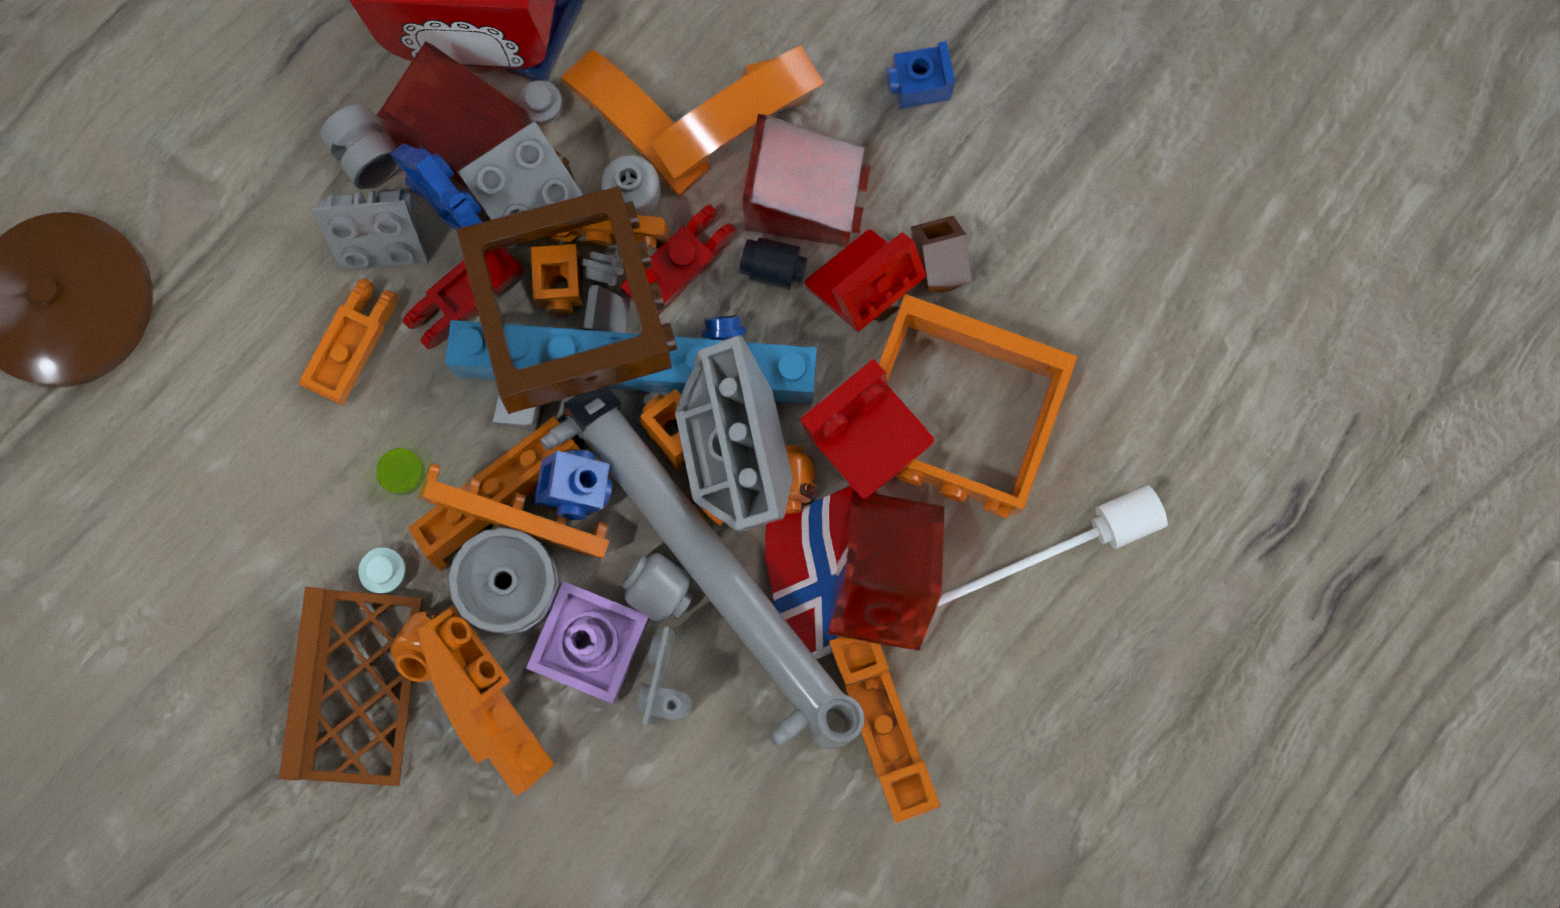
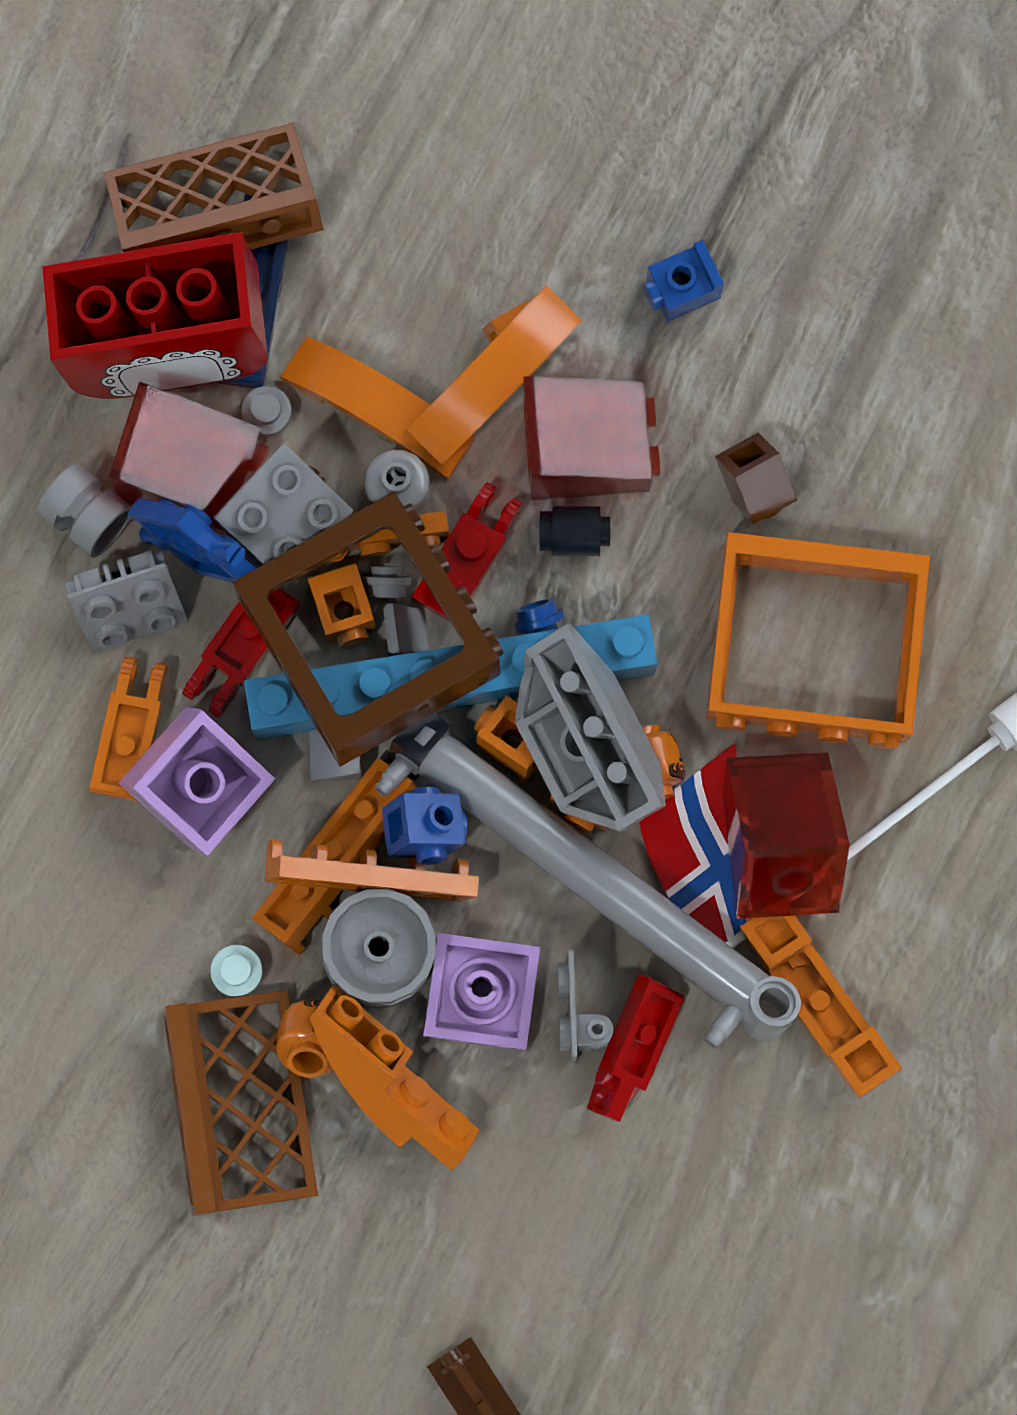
camera: 15 degrees left, 0 degrees up
(386, 398) = (197, 780): none -> lavender brick
(400, 471) = (227, 862): clear neon green tile -> none
(657, 587) = (541, 914): light grey head -> none
(708, 724) = (634, 1046): none -> red hinge
(866, 431) = (727, 692): red bracket -> none
(867, 277) = (681, 523): red bracket -> none

